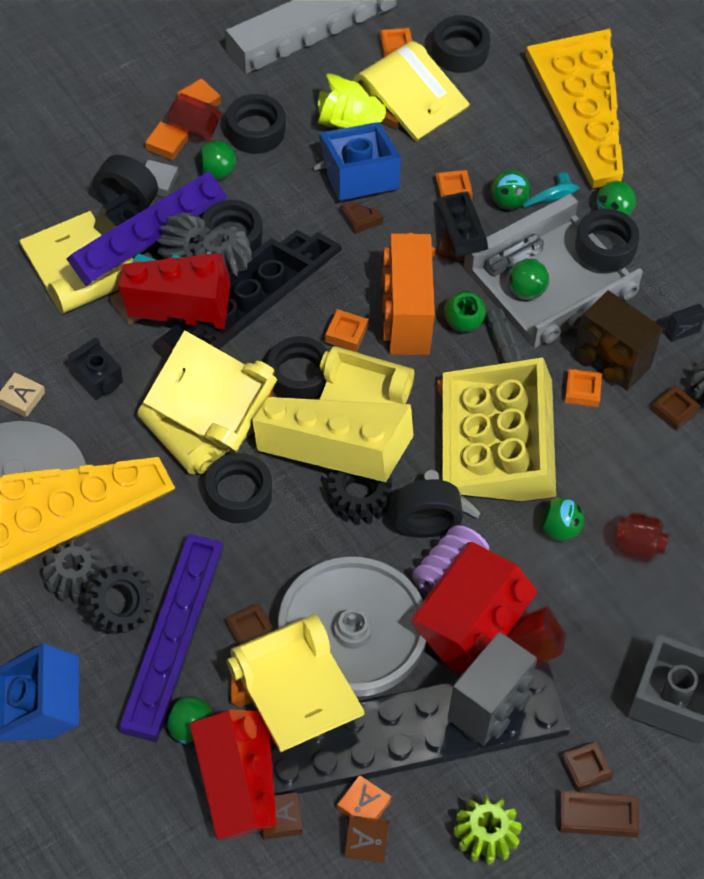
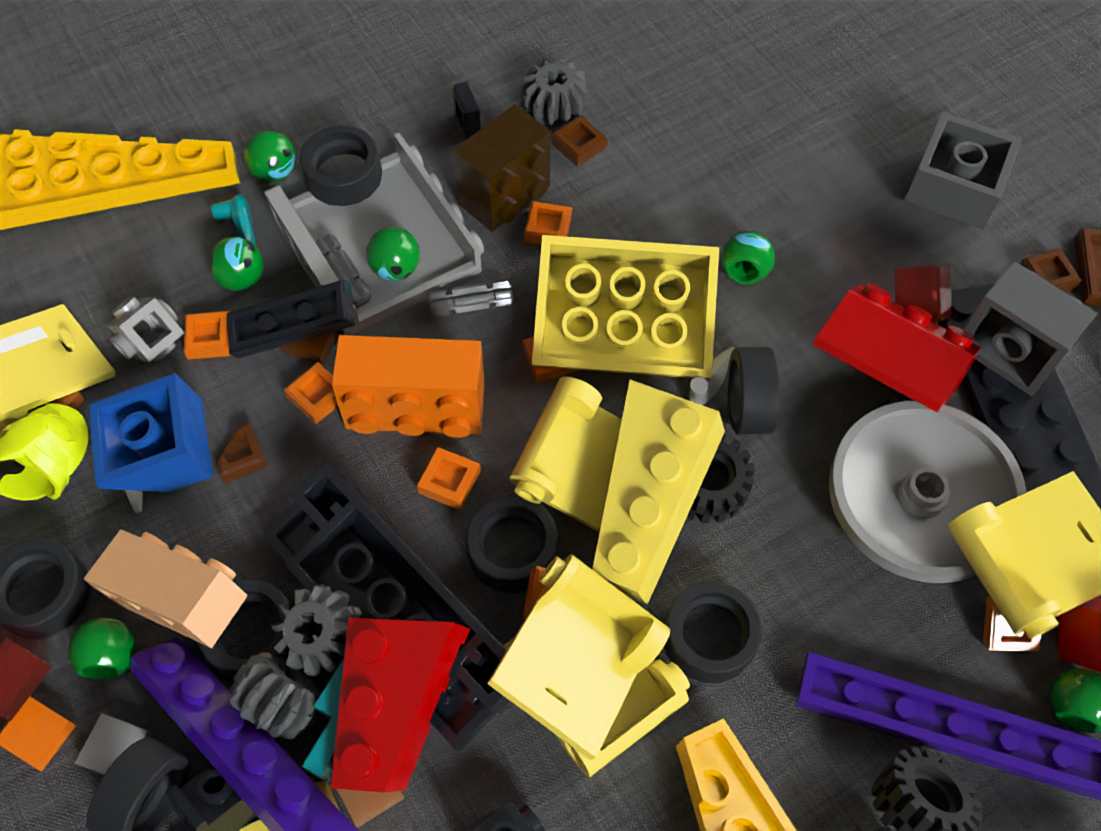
camera: 85 degrees left, 5 degrees up
(248, 624) = (922, 625): reddish brown tile -> none
(252, 178) = (168, 585): none -> light nougat brick
(441, 557) = (821, 379): lavender piece -> none
(445, 145) = (159, 332): none -> light grey brick
(464, 311) = (435, 322): green piece -> none
(641, 537) = (766, 186): clear red head -> none

